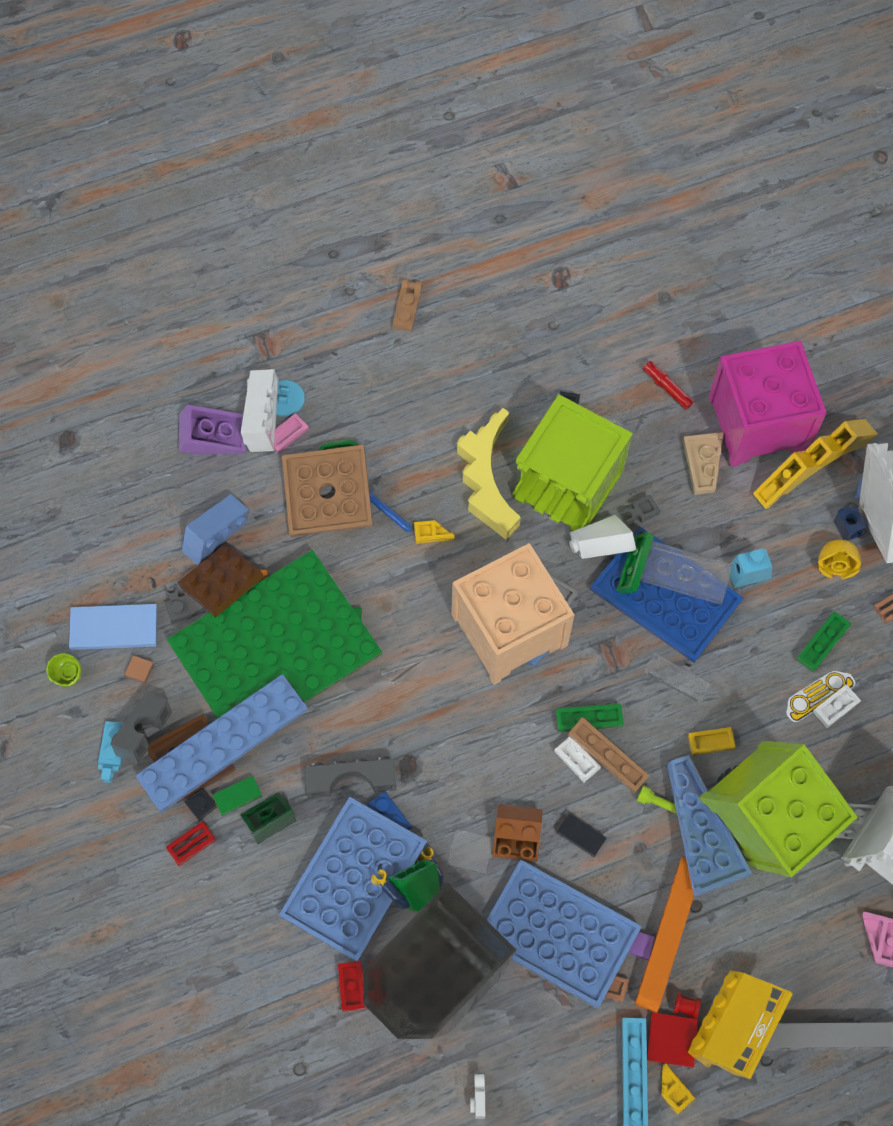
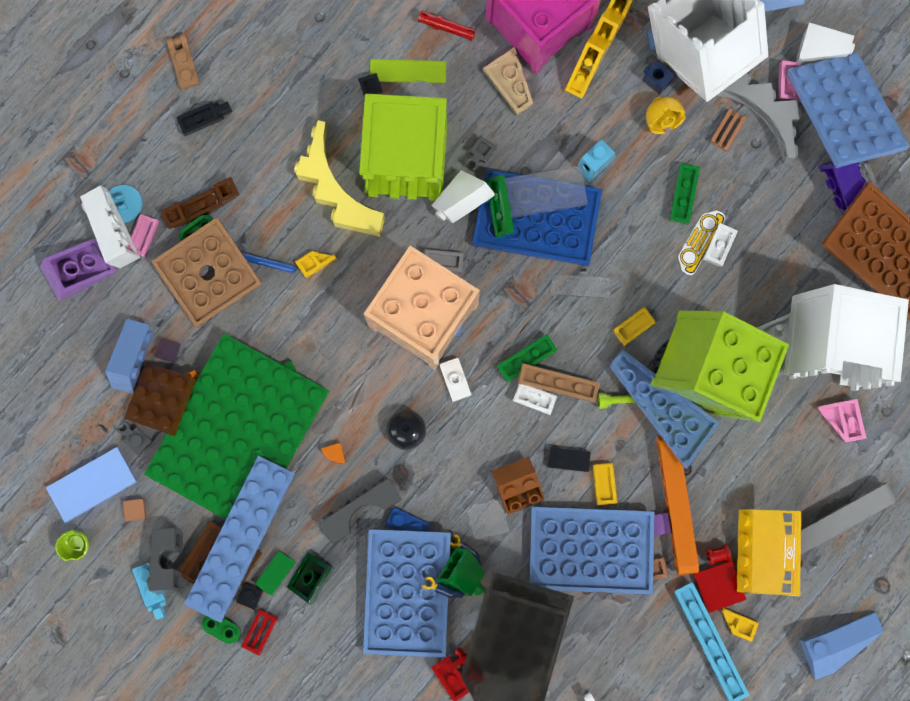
camera: 25 degrees left, 15 degrees up
(155, 820) = (220, 629): none -> green plate
(251, 543) = (167, 350): none -> clear purple tile
(355, 713) = (334, 453): none -> orange tile
(360, 432) = (200, 205): none -> reddish brown slope
(399, 358) = (203, 117): none -> black hinge
(436, 725) = (406, 430): none -> black cylinder
(508, 703) = (455, 380): none -> white plate
(605, 877) = (604, 484): none -> yellow tile
(612, 408) = (409, 70): none -> lime sticker

